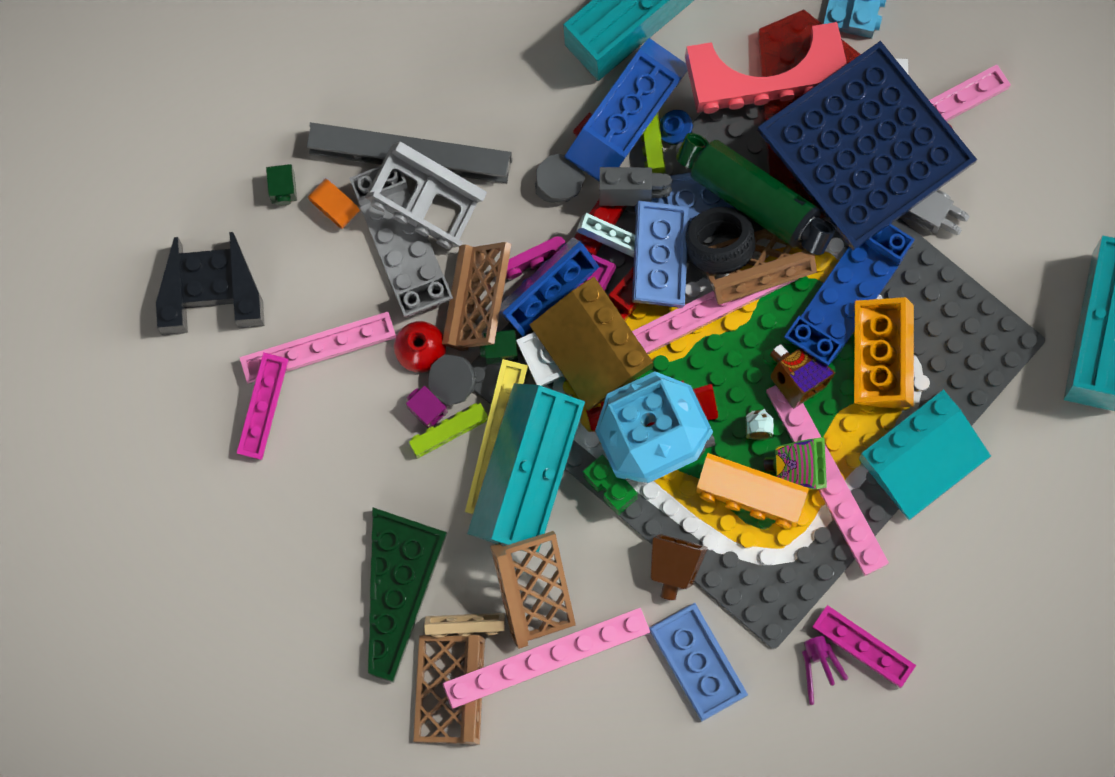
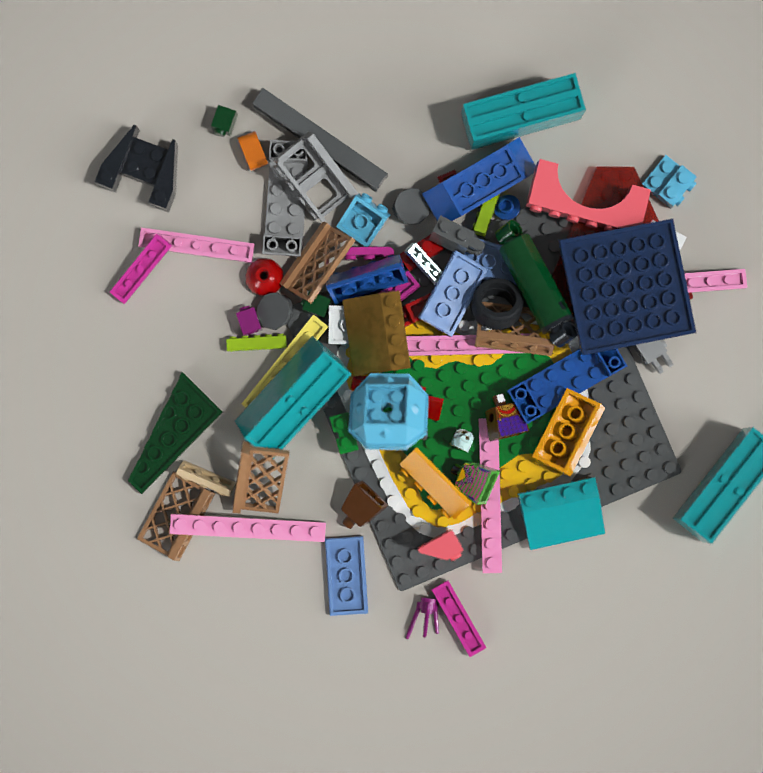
camera: 20 degrees right, 10 degrees up
(508, 219) = (363, 219): none -> medium azure plate
(800, 562) = (443, 546): none -> coral slope

